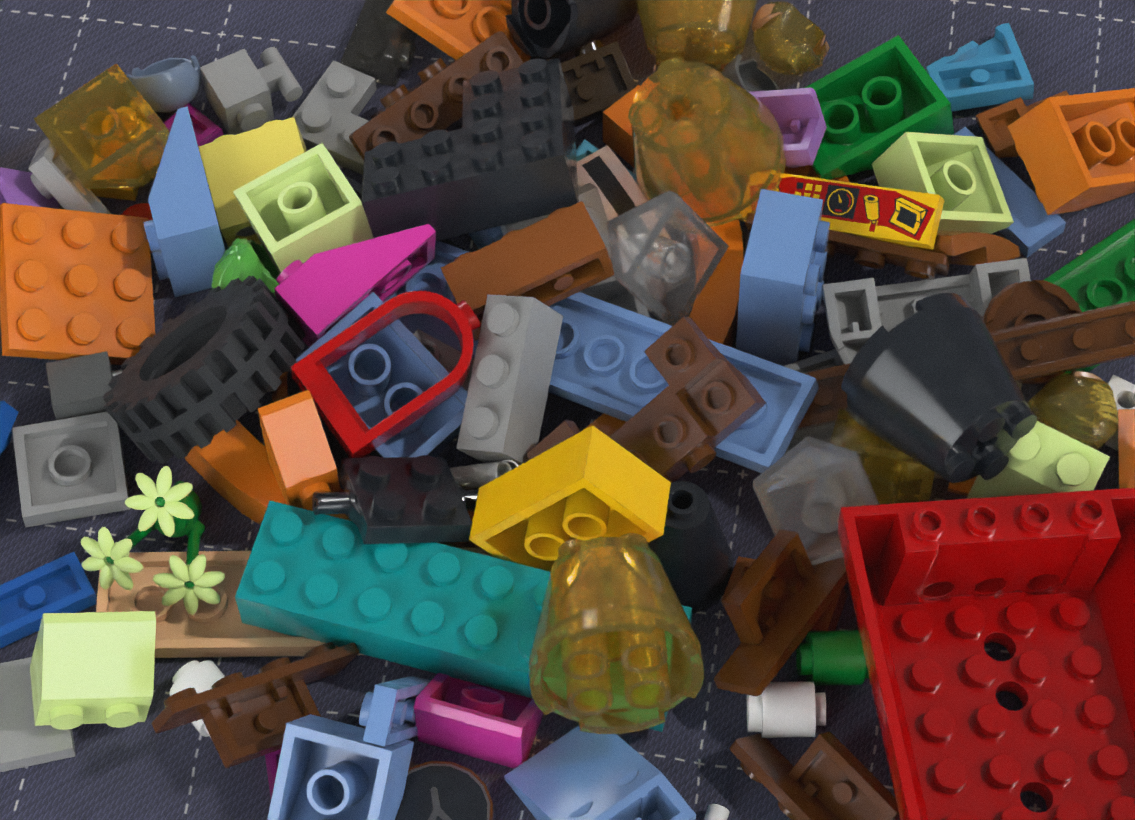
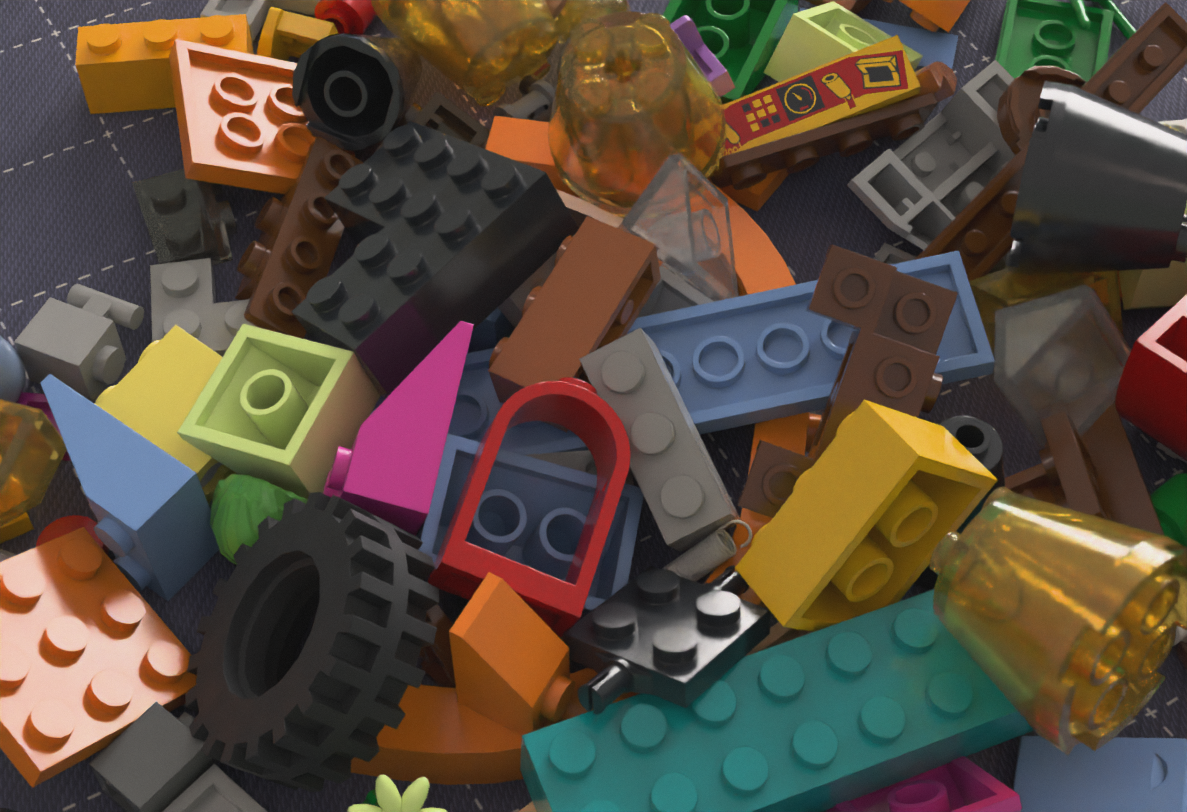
camera: 40 degrees left, 5 degrees down
(782, 277) = (810, 179): medium blue brick -> none

